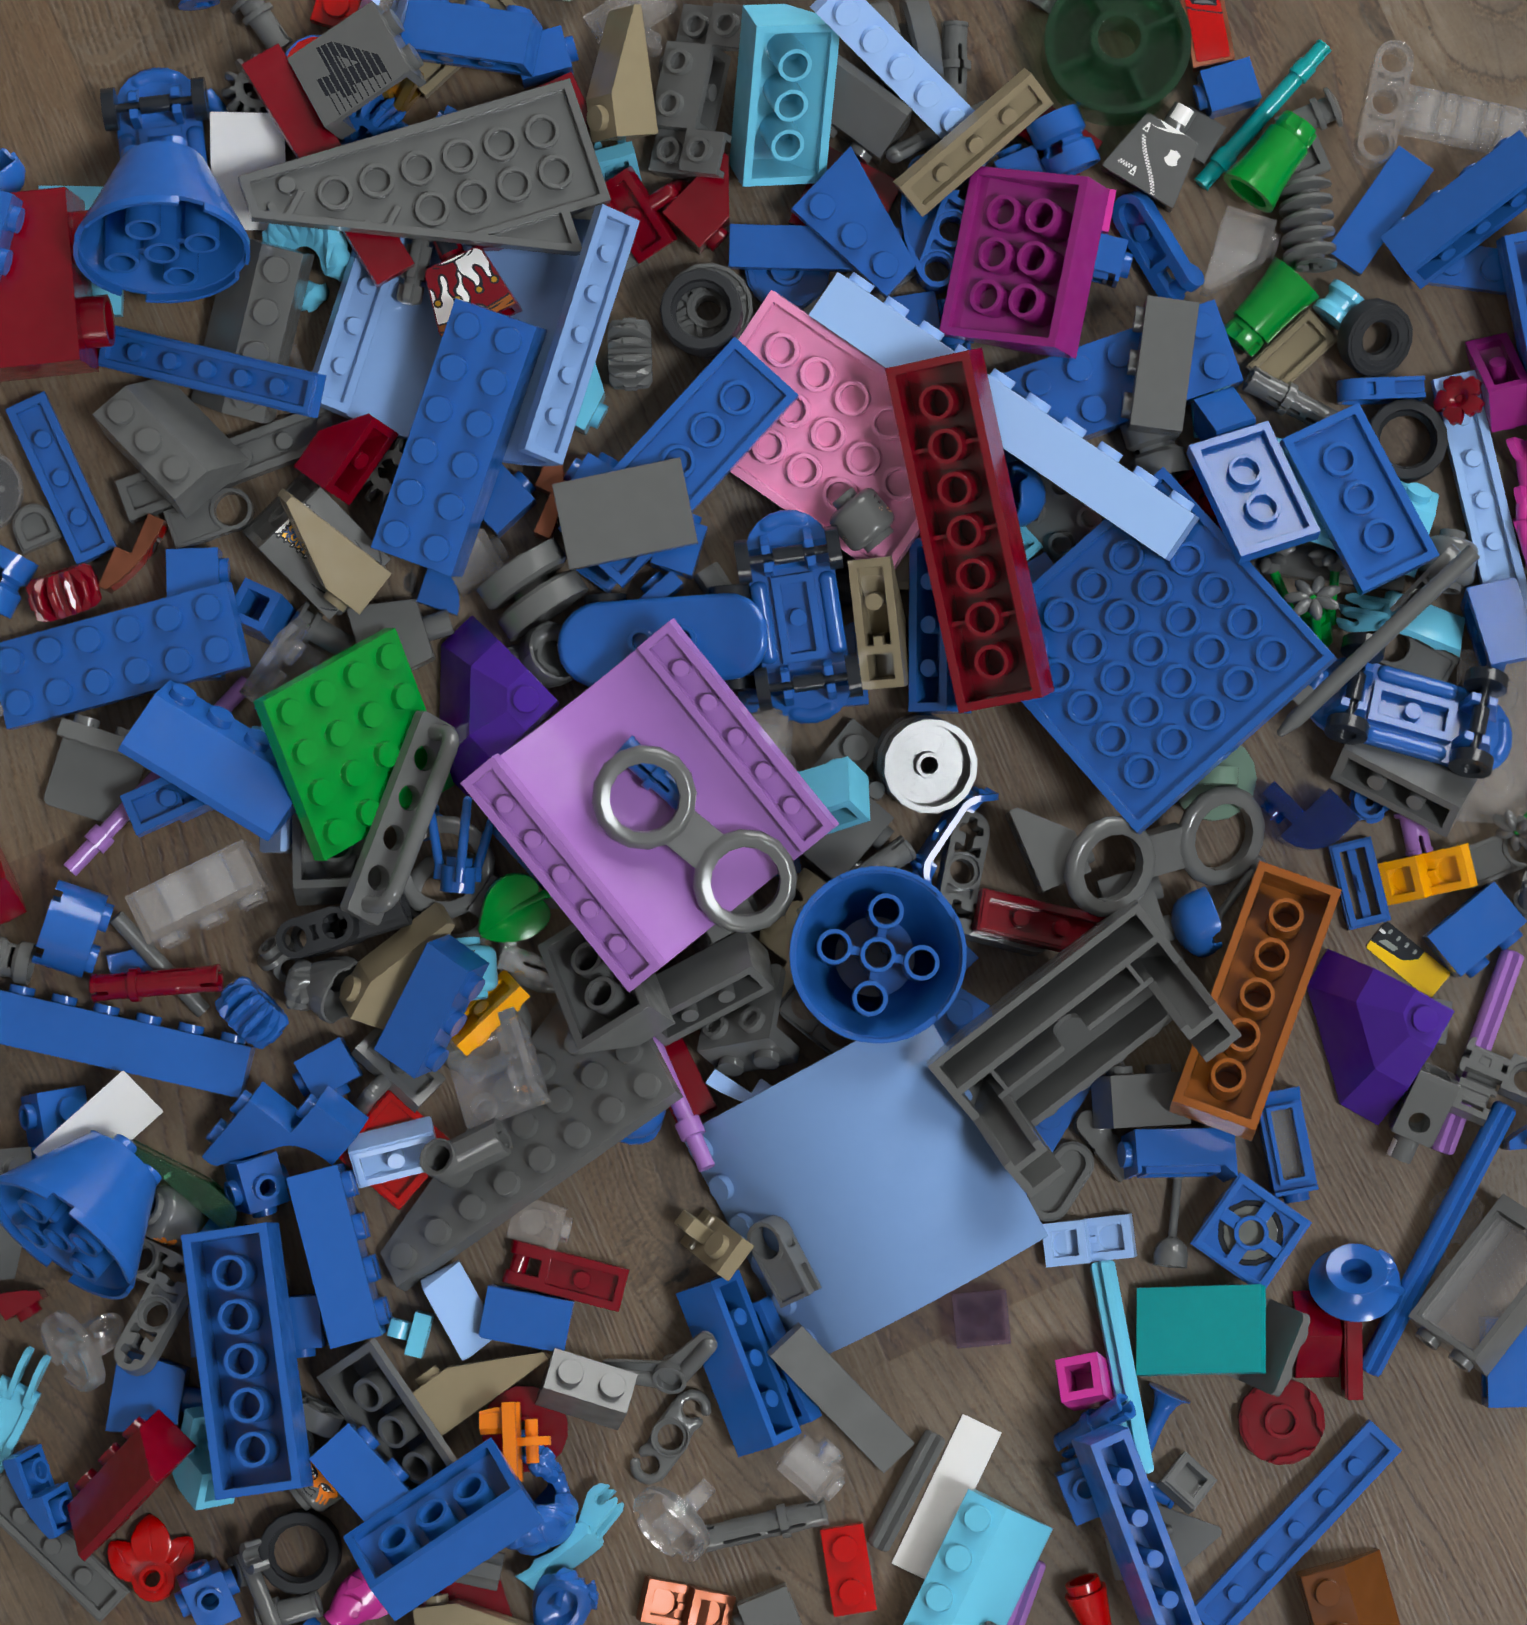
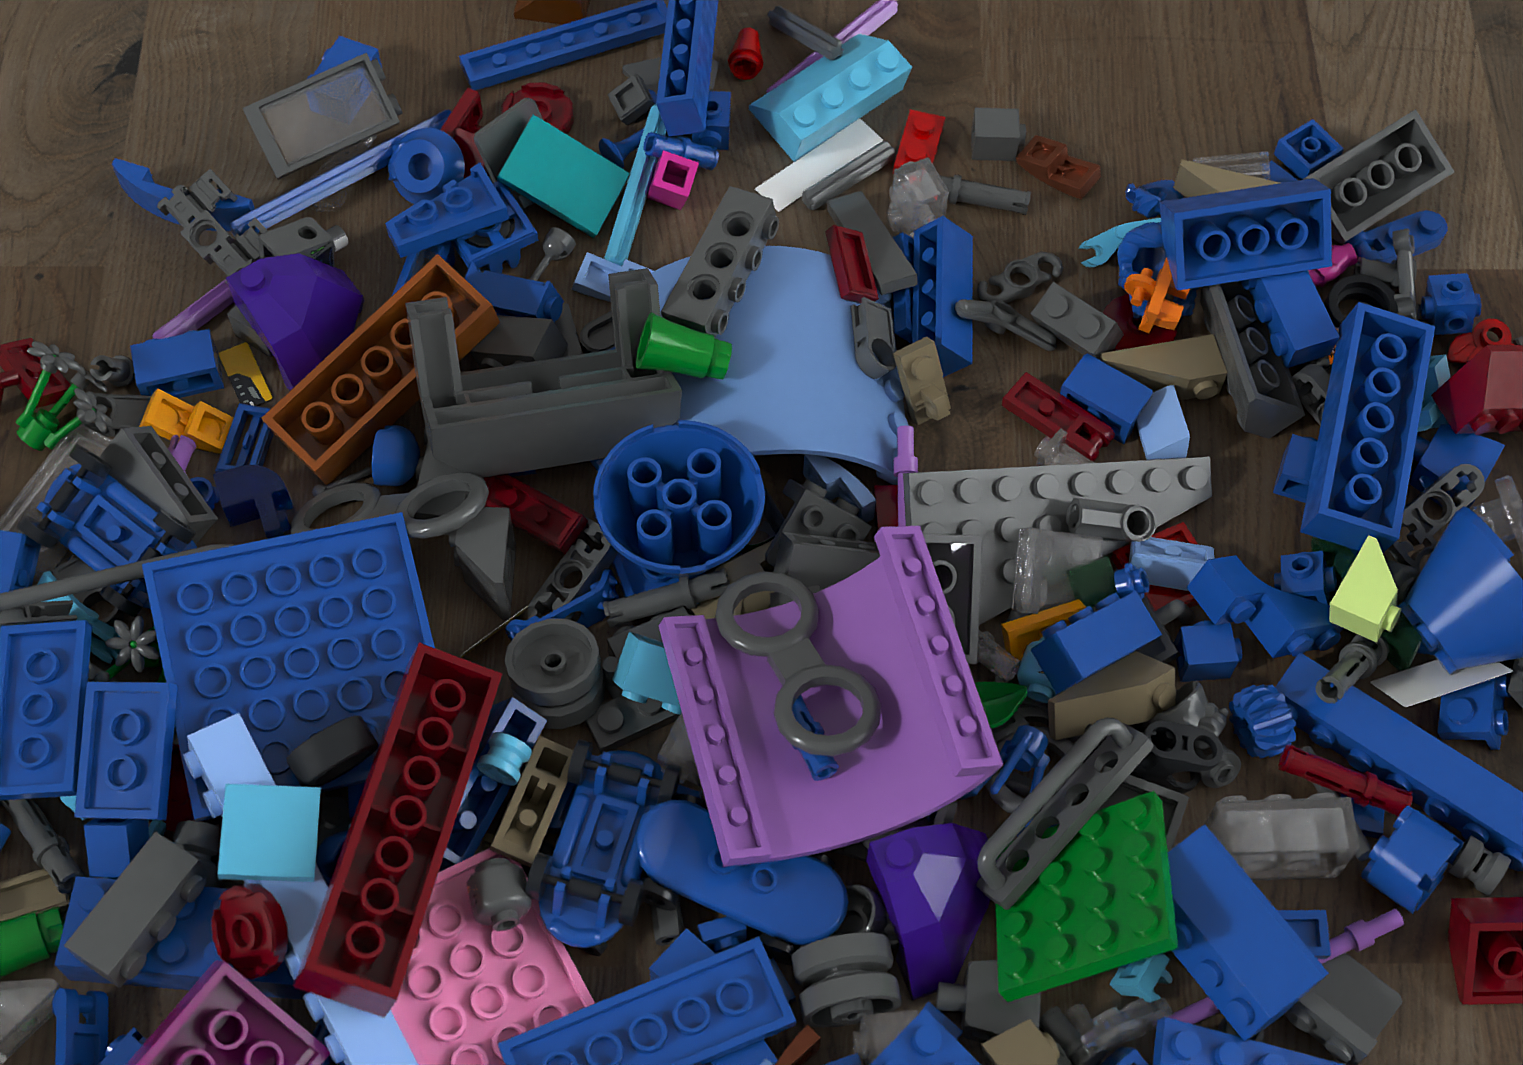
camera: 155 degrees left, 25 degrees down
(182, 1114) = (1351, 667): none -> dark grey pin
(192, 1168) = (1366, 595): none -> yellowish green slope
(338, 1255) = (1254, 488): blue brick -> none
(414, 1332) = (1207, 424): medium azure tile -> none
(422, 1094) = (1130, 580): none -> blue plate
(458, 1079) = (1092, 581): none -> clear green tile
(625, 514) = (723, 1000): dark grey tile -> none
(673, 1521) = (1036, 215): clear tile -> none
(841, 1336) = (851, 264): none -> dark red tile
(920, 644) = (504, 758): none -> medium azure wheel
(952, 1118) = (681, 350): none -> green plant
(975, 1175) = (720, 246): none -> dark grey brick
(1009, 788) = (471, 648): none -> sticker
(1052, 387) = (250, 930): none -> dark red tile
(1068, 569) = (332, 752): none -> black tyre
(1075, 466) = (269, 833): none -> medium azure tile
(1283, 1217) = (455, 212): none -> blue wing

